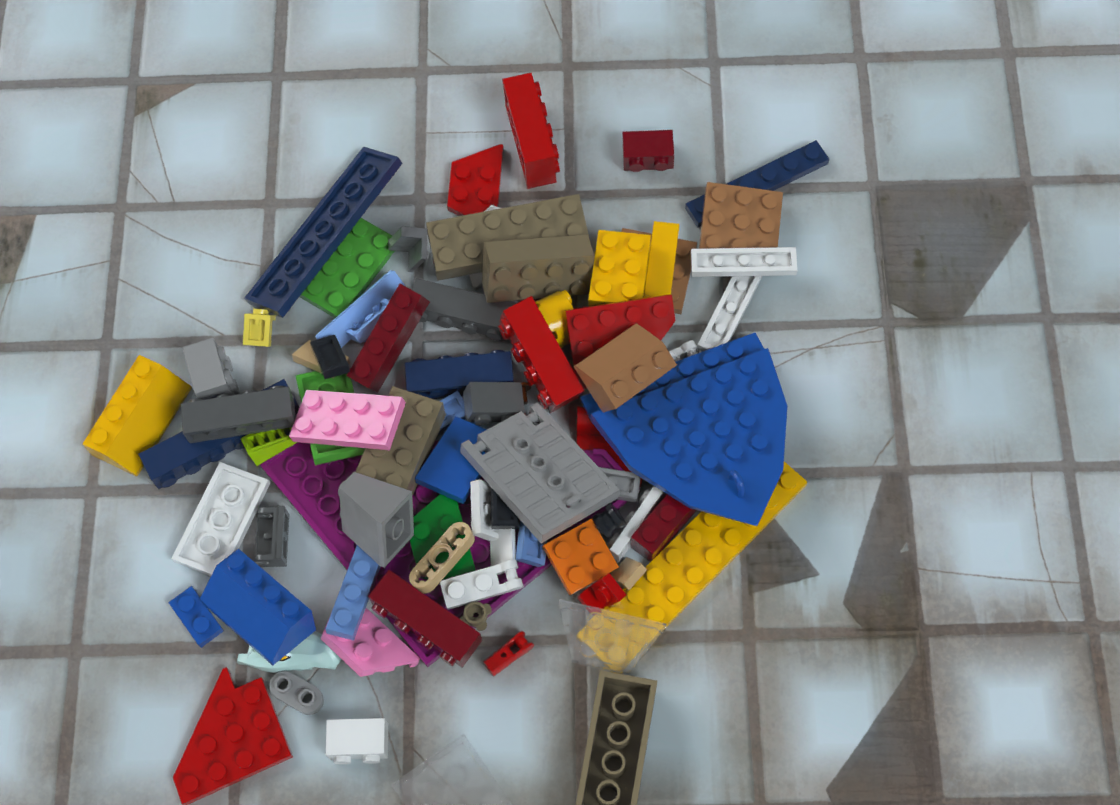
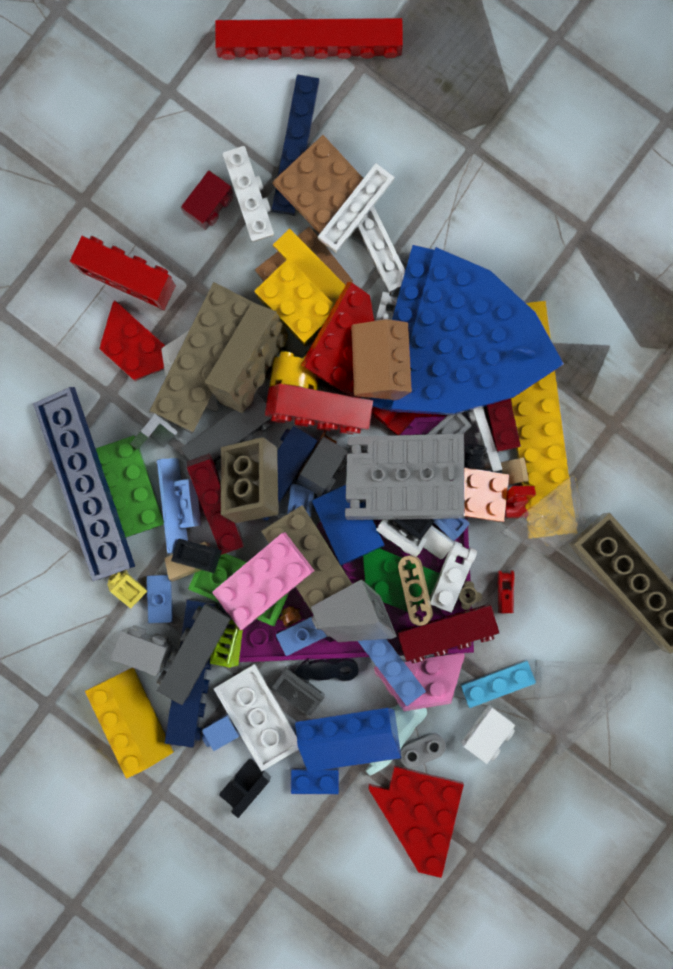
camera: 55 degrees left, 20 degrees up
(145, 559) = (245, 787): none -> black panel
(181, 496) = (219, 732): none -> medium blue brick
(268, 363) = (159, 599): none -> medium blue plate
(310, 548) = (326, 669): none -> black brick
(320, 496) = (299, 636): none -> medium blue plate
(334, 474) = (290, 616): none -> dark orange plate
(414, 715) = (498, 683): none -> medium azure plate
(429, 344) = (249, 480): none -> dark tan brick
(680, 175) = (248, 194): none -> white bracket
(855, 128) = (309, 38): none -> red brick

